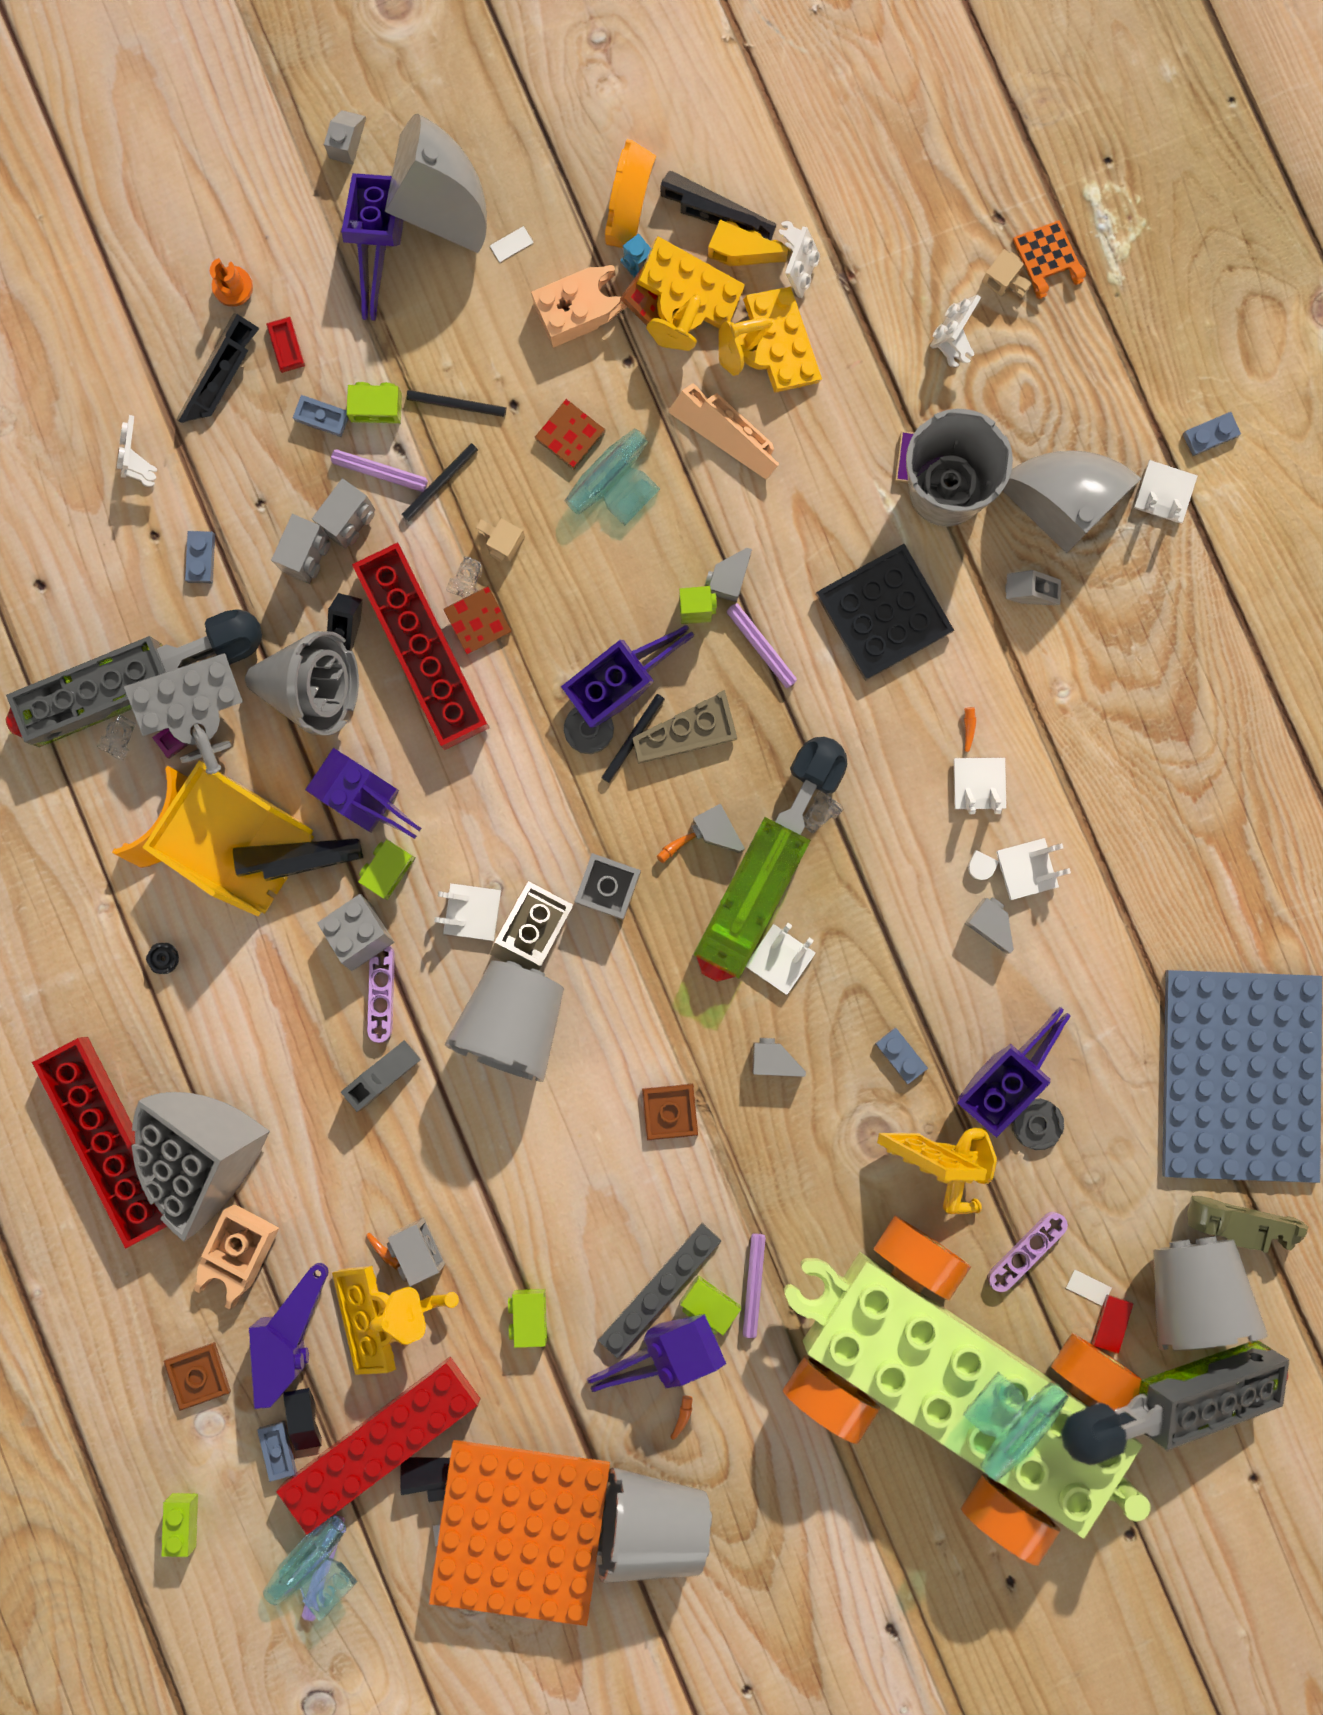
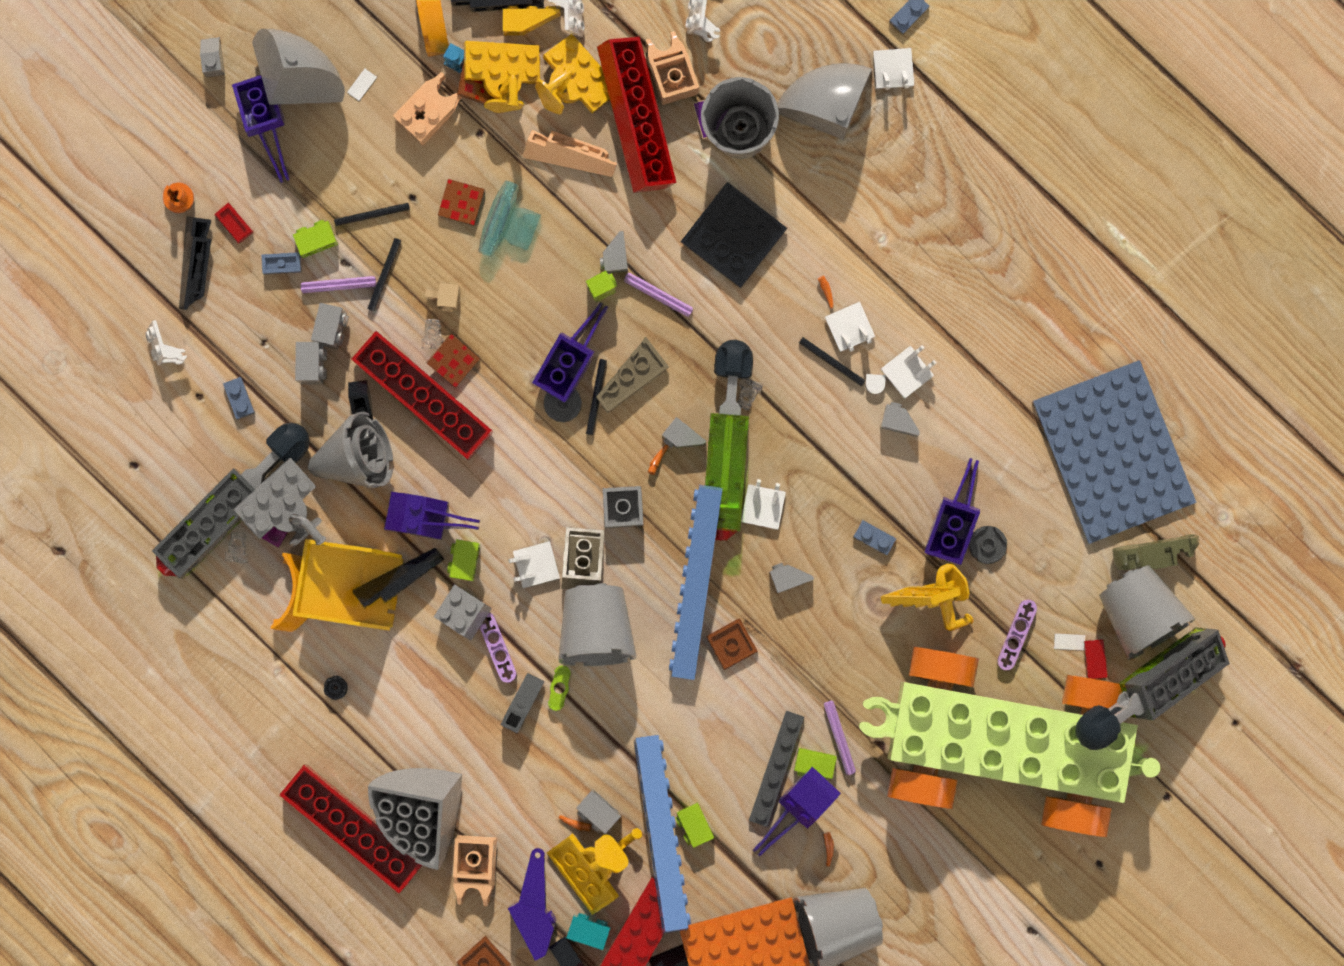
camera: 20 degrees left, 0 degrees up
(341, 1394) = (588, 931): none -> teal brick
(426, 1089) = (562, 675): none -> lime piece
(479, 1317) = (661, 834): none -> medium blue brick
(659, 1018) = (696, 582): none -> medium blue brick
(828, 414) = (636, 114): none -> red brick
(893, 382) = (672, 64): none -> light nougat brick
(939, 816) = (833, 362): none -> black piece
(1015, 1423) = (1043, 743): clear light blue plate -> none
(1033, 588) = (830, 175): light grey slope -> none

